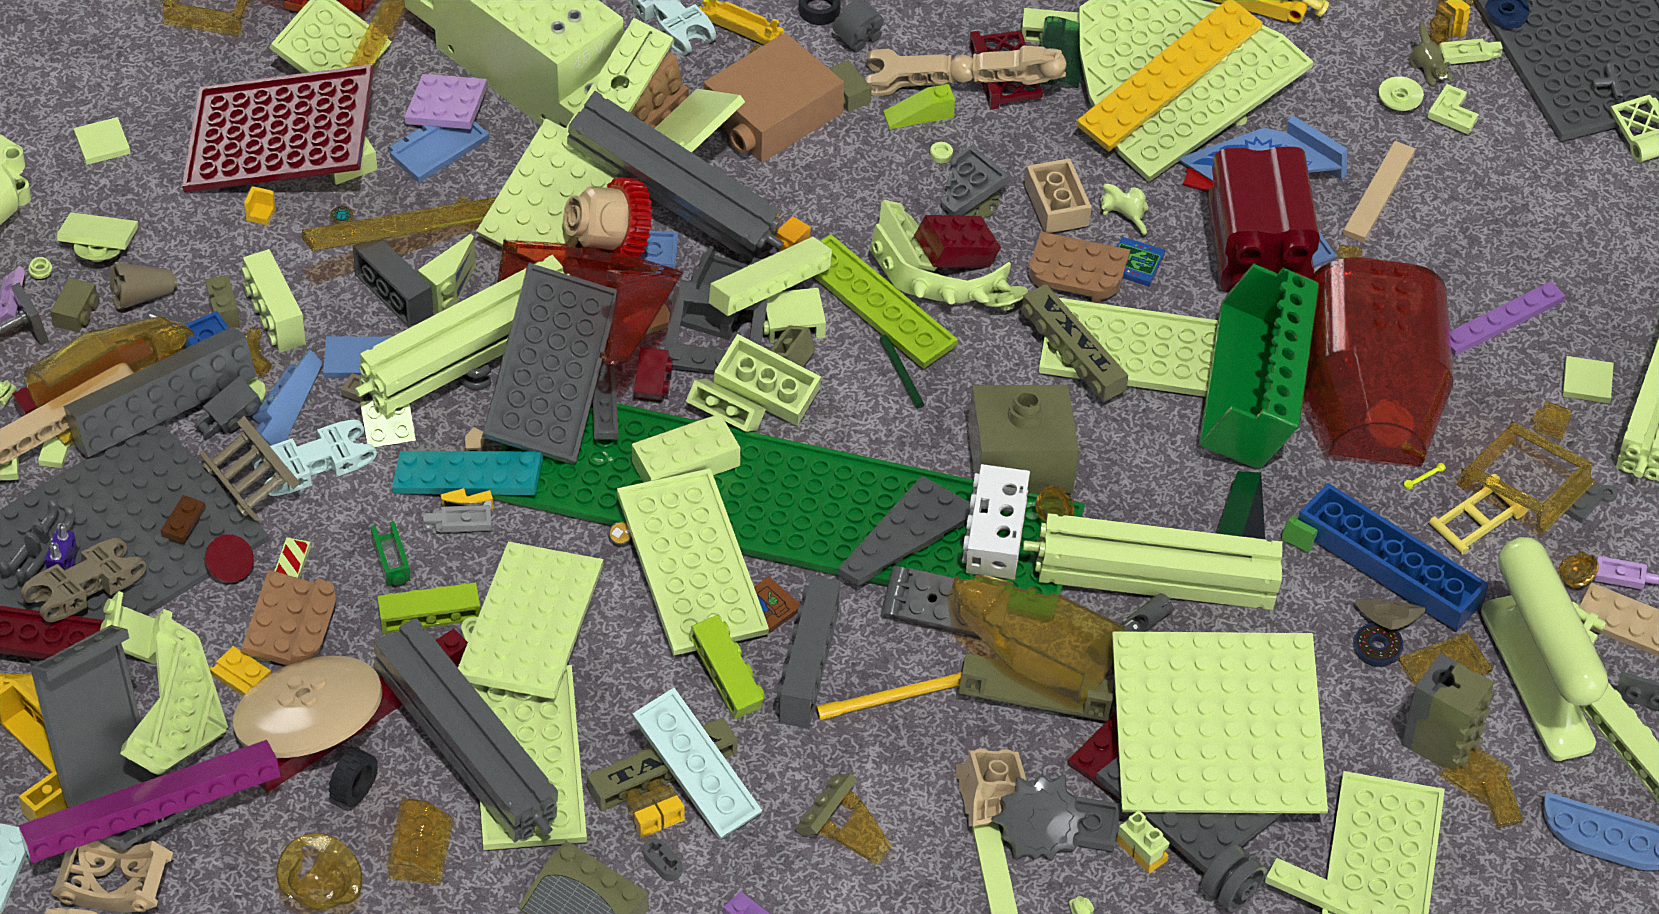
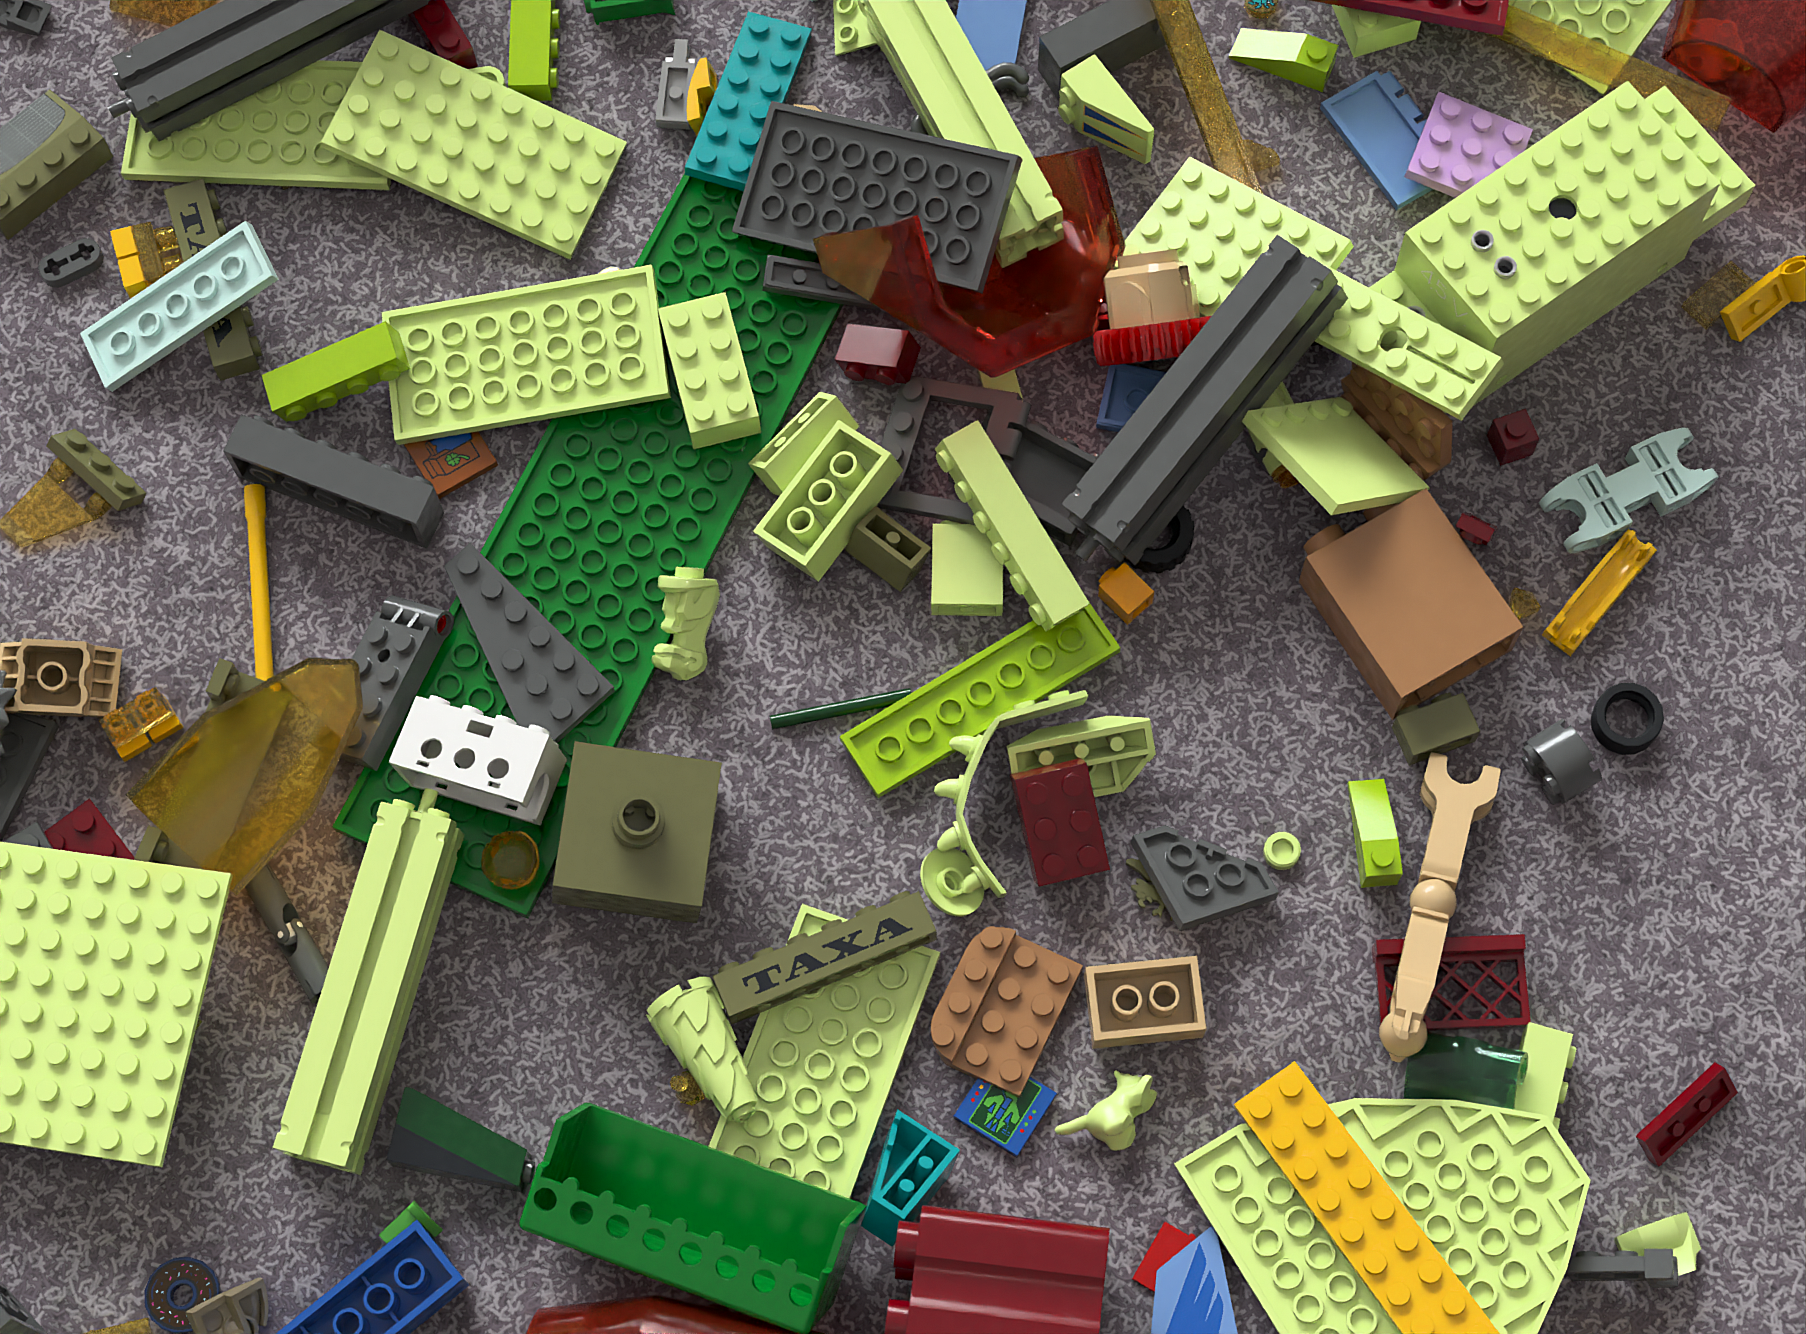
camera: 105 degrees right, 20 degrees up
(387, 189) = (1287, 55): none -> lime slope
(725, 58) = (1475, 529): none -> dark red hinge
(861, 443) = (688, 615): none -> yellowish green animal
(1009, 733) = (145, 713): none -> clear yellow hips
(1140, 396) = (705, 1045): none -> yellowish green cone
(1169, 410) = (686, 1089): none -> clear yellow rock
(1198, 285) = (907, 1176): none -> teal wedge

